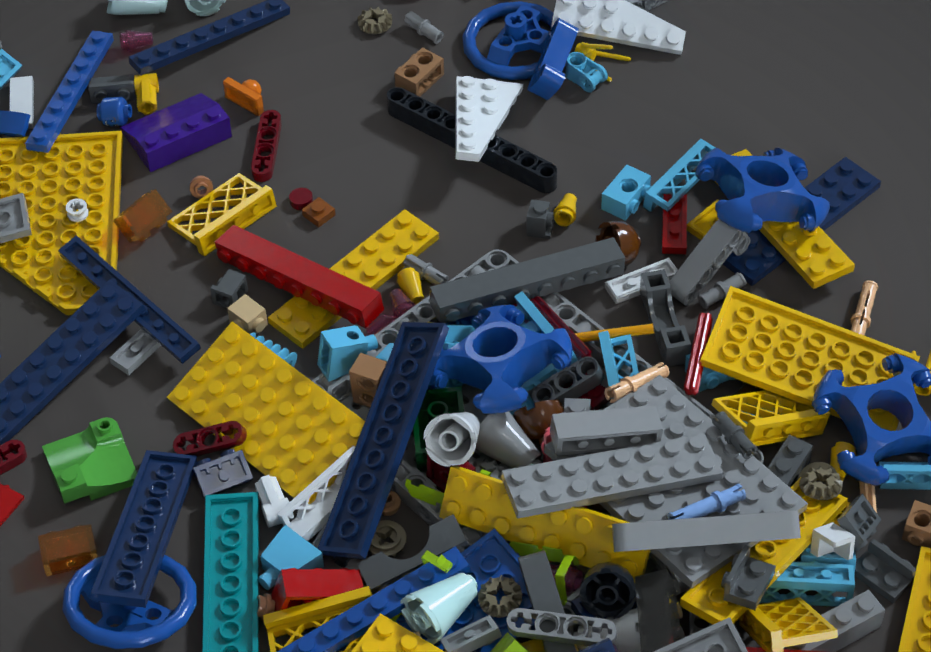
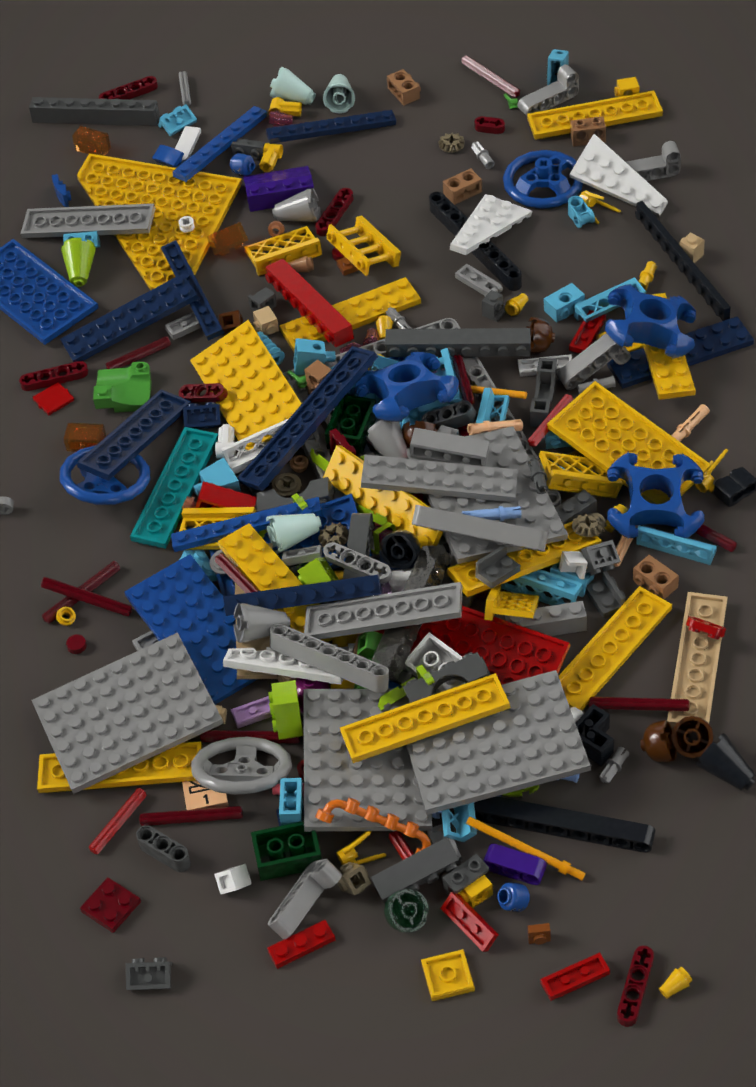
camera: 25 degrees right, 0 degrees up
(89, 407) = (139, 353): none -> dark red axle
(143, 23) = (289, 108): none -> yellow piece
(202, 323) = (230, 321): none -> reddish brown brick
(219, 152) = (298, 208): none -> light grey cone
(245, 94) = (335, 173): orange tile -> none
(261, 225) = (303, 264): none -> medium nougat cone
(337, 167) = (368, 234): none -> yellow fence
(342, 388) = (301, 382): none -> bright green hand
(452, 438) = (345, 425): white cone -> none
(502, 191) = (477, 280): none -> light grey plate
(548, 72) = (559, 197): blue beam -> none
(708, 130) = (646, 275): none -> yellow pin
(744, 103) = (683, 261): none -> black plate
(745, 84) = (693, 246): none -> tan brick

